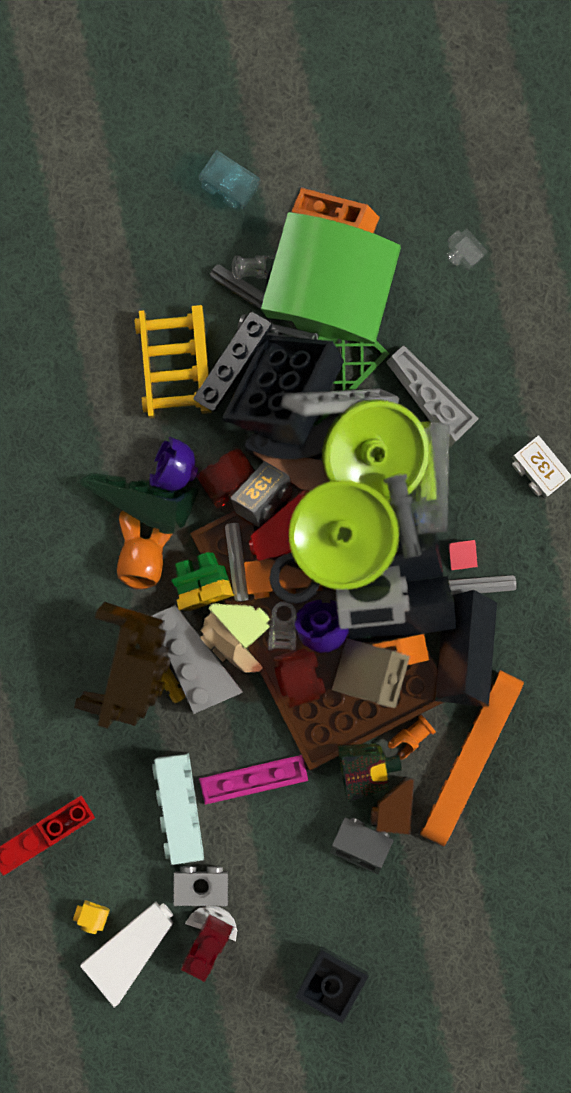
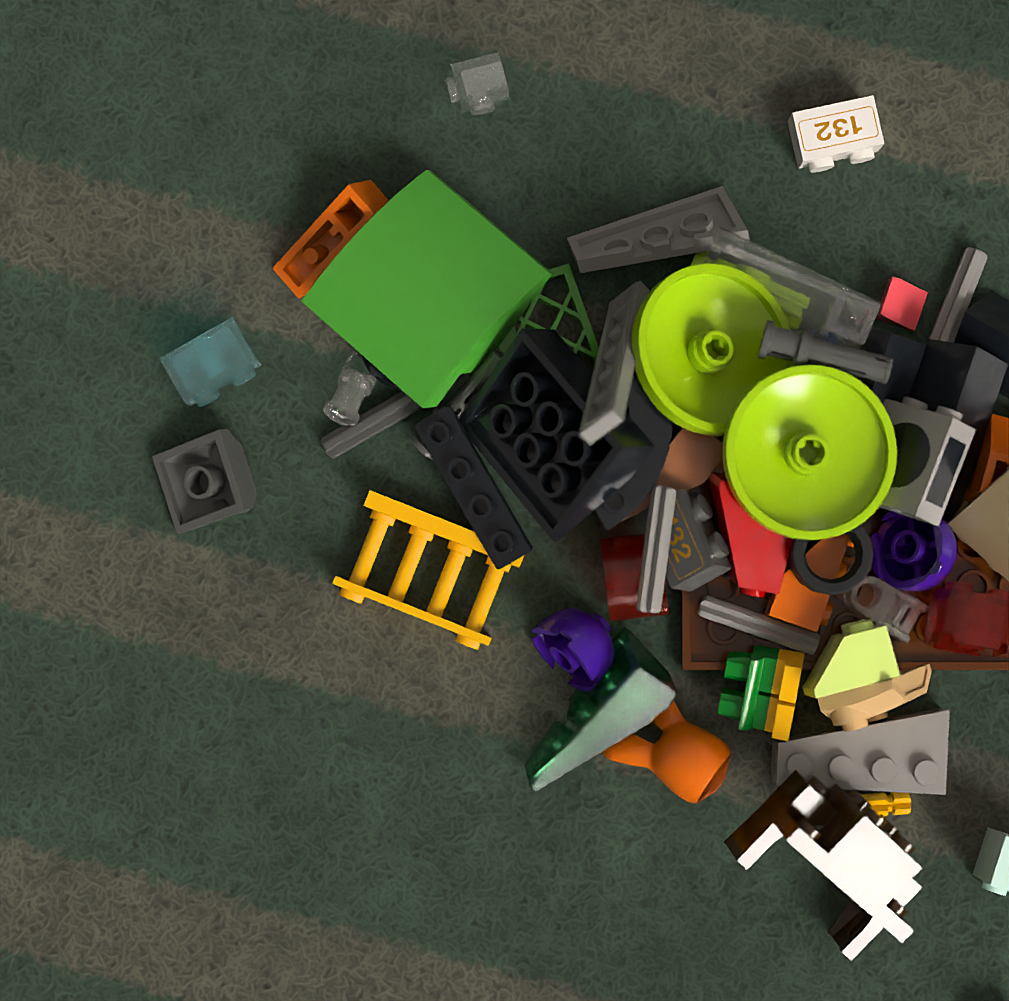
camera: 60 degrees left, 0 degrees up
(161, 211) = (205, 480): none -> dark grey slope
(247, 478) = (656, 549): none -> light grey axle

